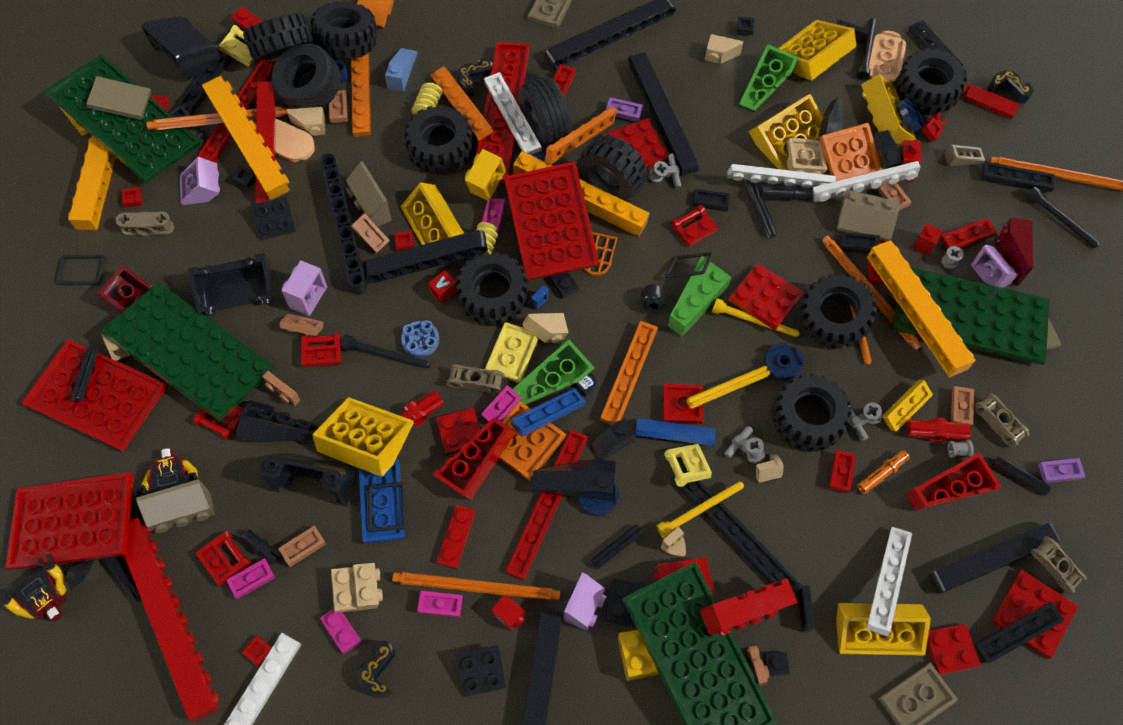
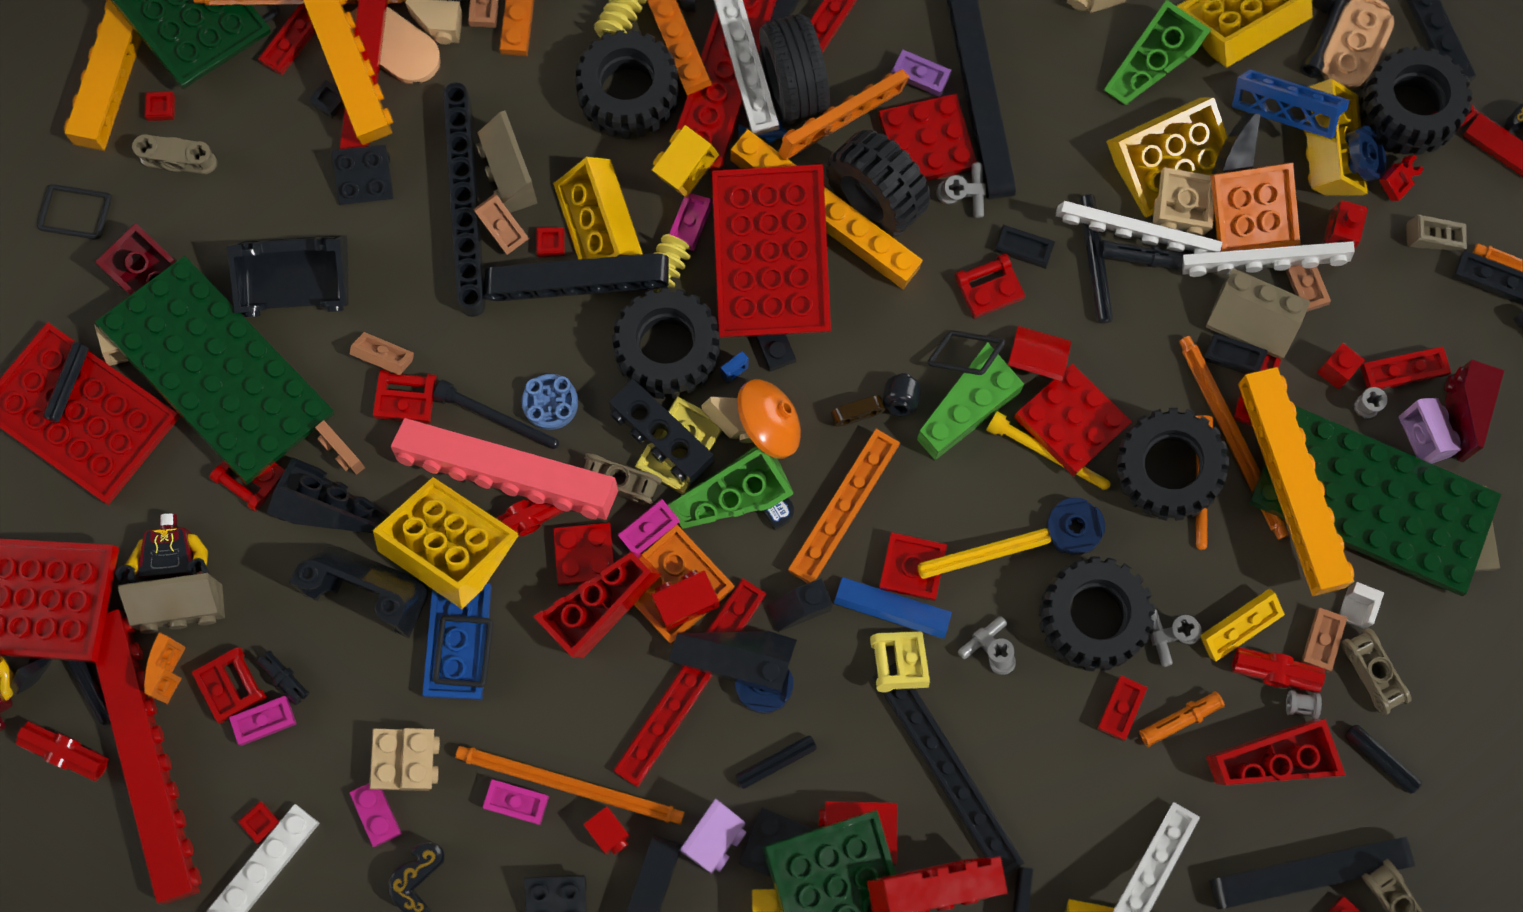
camera: 10 degrees right, 10 degrees up
(106, 624) = (62, 751): none -> red piece
(172, 552) = (163, 658): none -> orange slope
(199, 182) = (261, 98): lavender slope -> none
(302, 546) = (338, 686): nougat plate -> none
(304, 288) = (392, 299): lavender brick -> none
(397, 382) = (505, 469): none -> coral brick
(443, 286) = (595, 326): red brick -> none
(456, 537) = (554, 709): red plate -> none
(494, 334) = (635, 398): none -> black brick
(535, 446) = (685, 599): none -> red brick
(547, 412) = (714, 548): blue tile -> none
(570, 322) = (769, 418): none -> orange dish
(605, 249) = (847, 303): orange window -> none
(625, 312) = (857, 411): none -> dark brown beam
(667, 528) = (852, 748): yellow piece -> none
(675, 544) = (858, 774): tan tile -> none
(736, 259) = (1039, 353): none -> red slope
(769, 470) = (1017, 688): tan tile -> none
(857, 85) = (1293, 94): none -> blue fence
(886, 148) = (1312, 208): black slope -> none
(980, 380) = (1361, 605): none -> white panel
(1061, 470) = (1444, 762): medium lavender plate -> none

